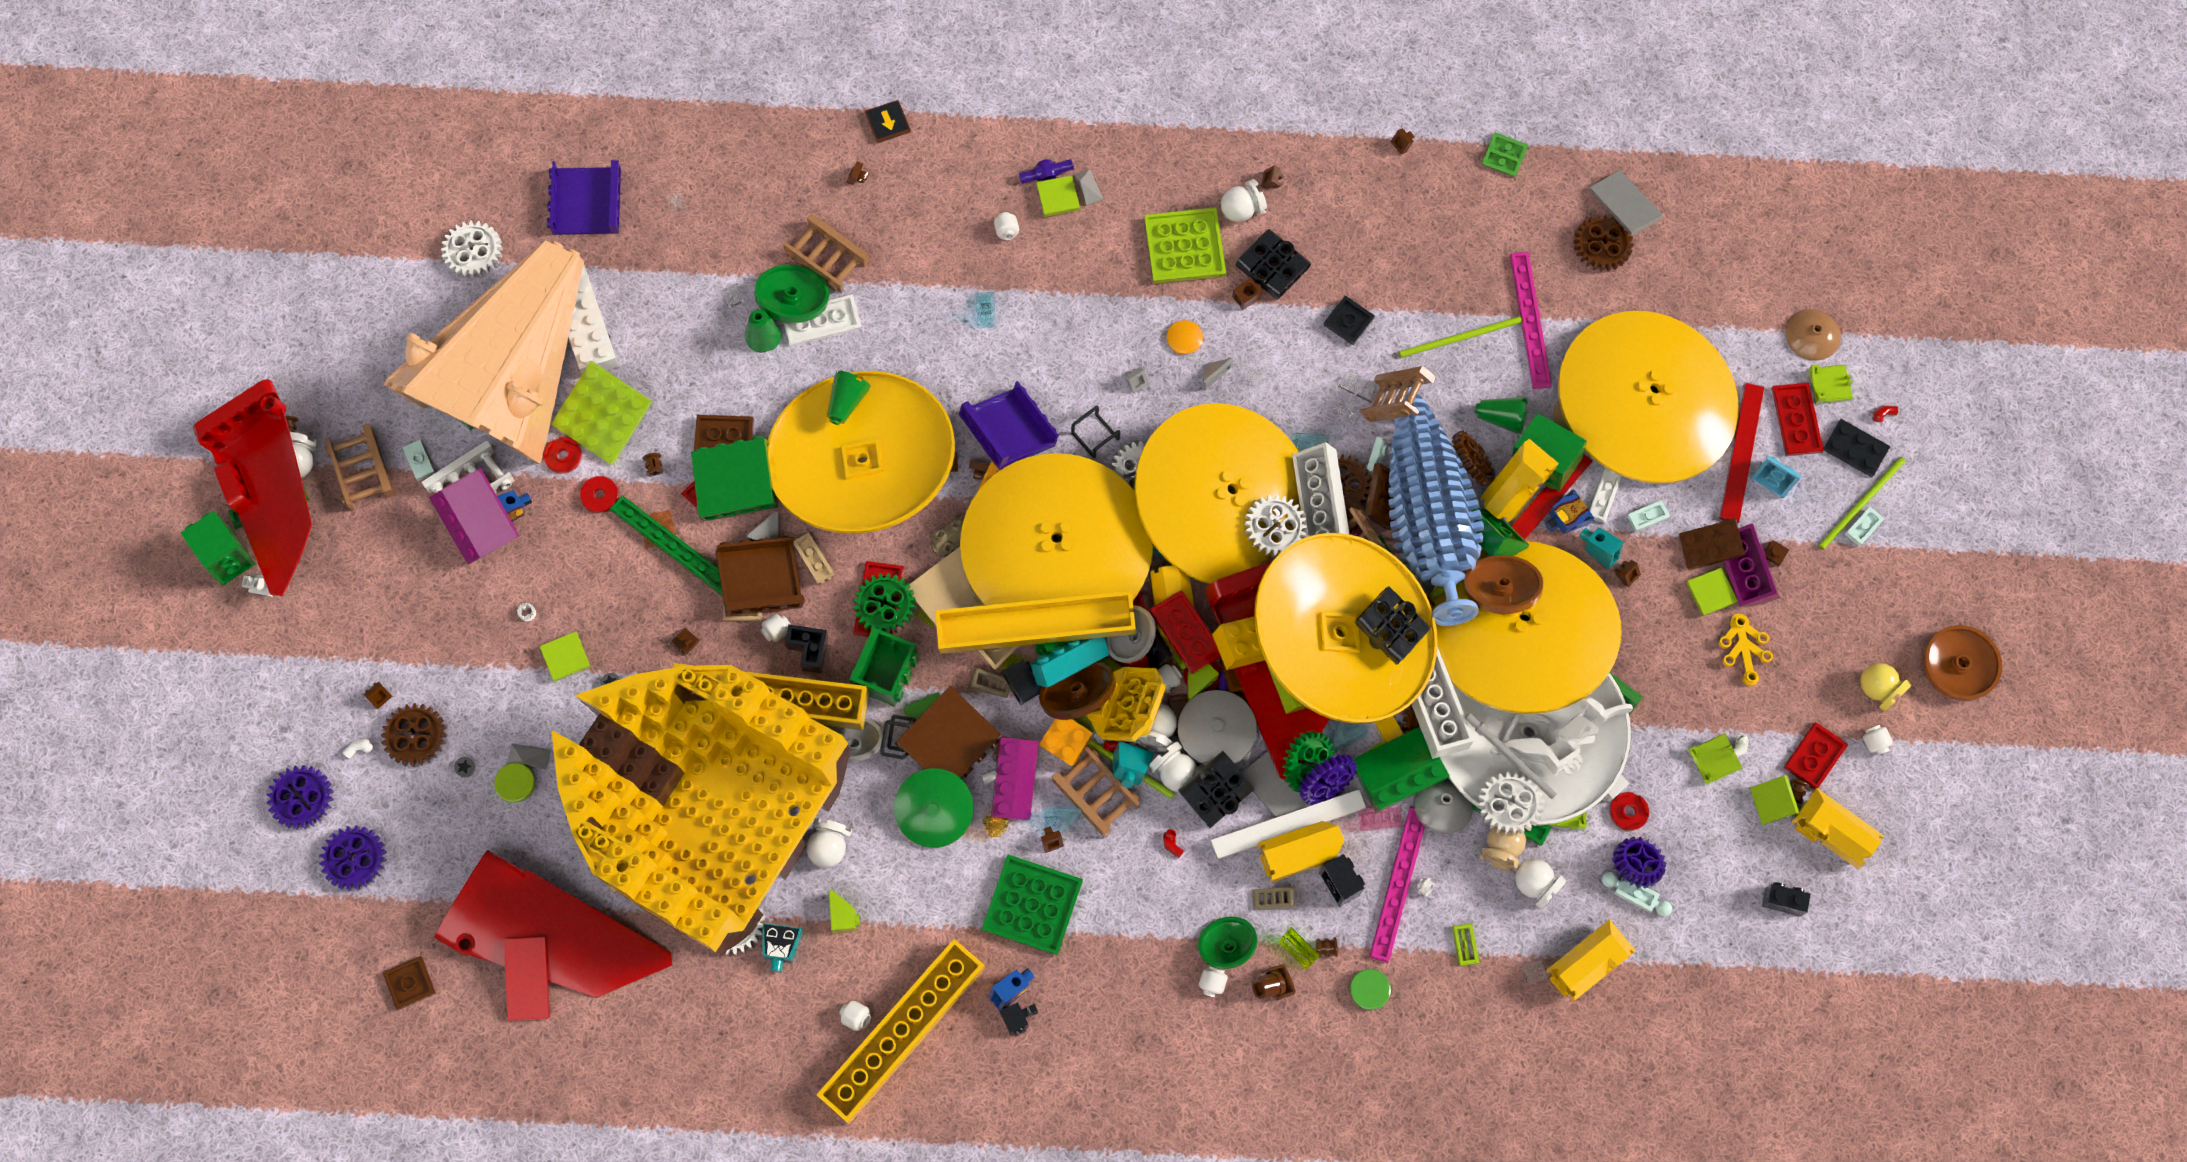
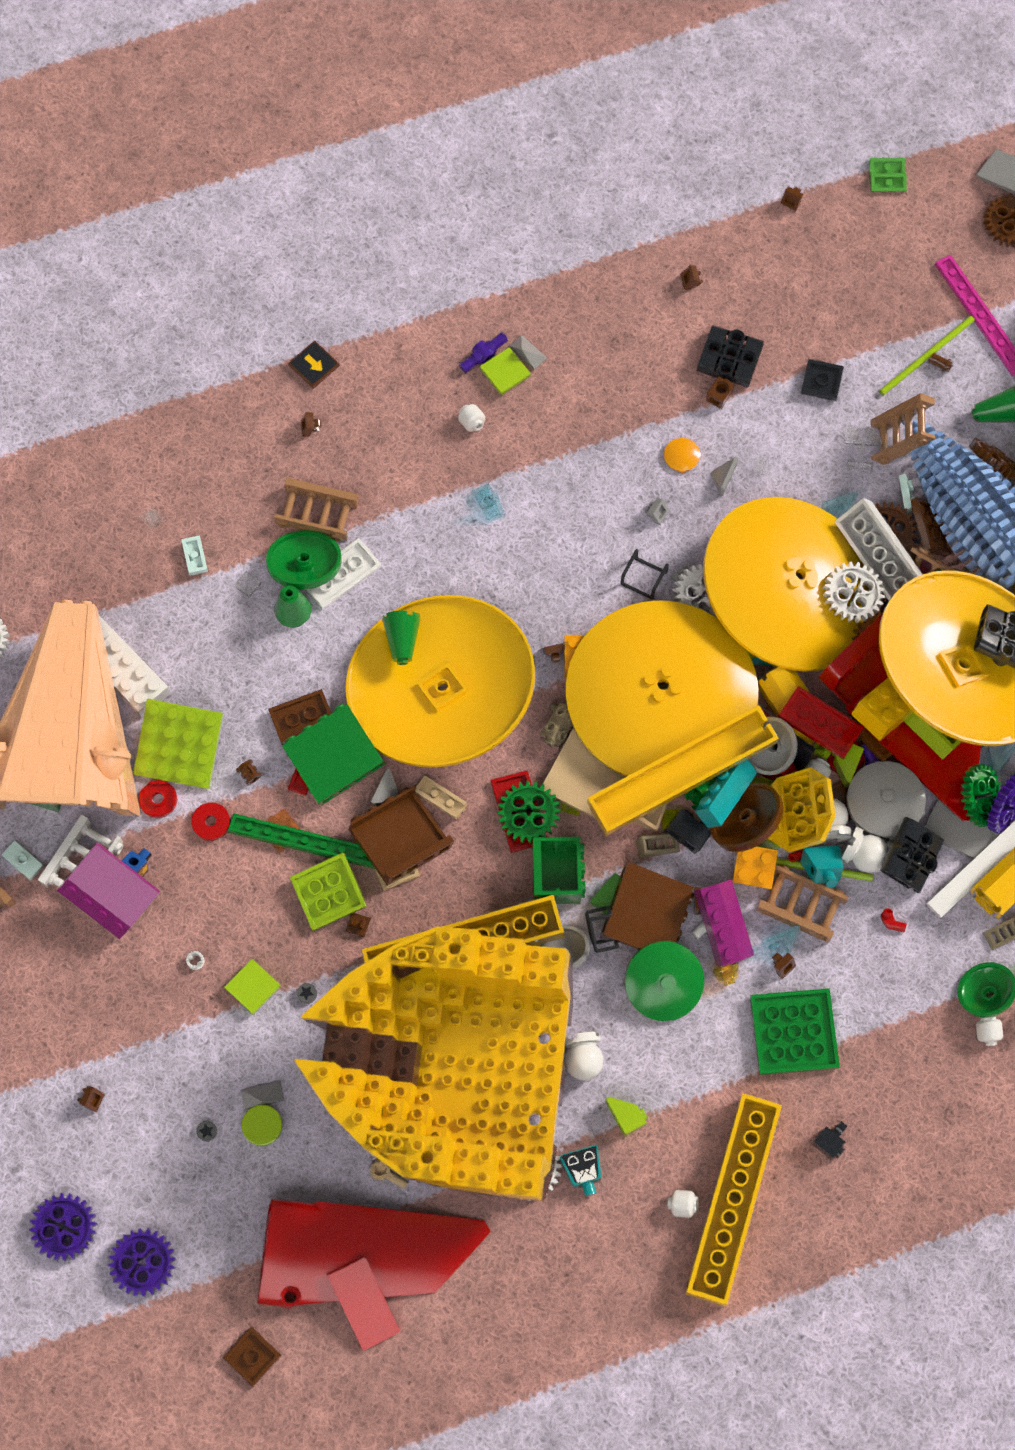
camera: 20 degrees left, 0 degrees up
(362, 744) = (94, 1154): white arm -> none
(412, 752) = (151, 1138): reddish brown gear -> none
(584, 200) = (63, 550): dark purple panel -> none
(671, 600) = (328, 892): none -> lime plate
(698, 251) = (194, 555): none -> light aqua plate
(775, 627) = (437, 877): white head -> none
(810, 642) = (477, 876): black brick -> none
(1006, 993) = (813, 1117): blue torso -> none
(1009, 426) = (565, 601): dark purple panel -> none
(1184, 245) = (642, 370): lime plate -> none
(1241, 202) = (677, 310): white tile -> none
(1472, 352) = (941, 362): none -> reddish brown pin

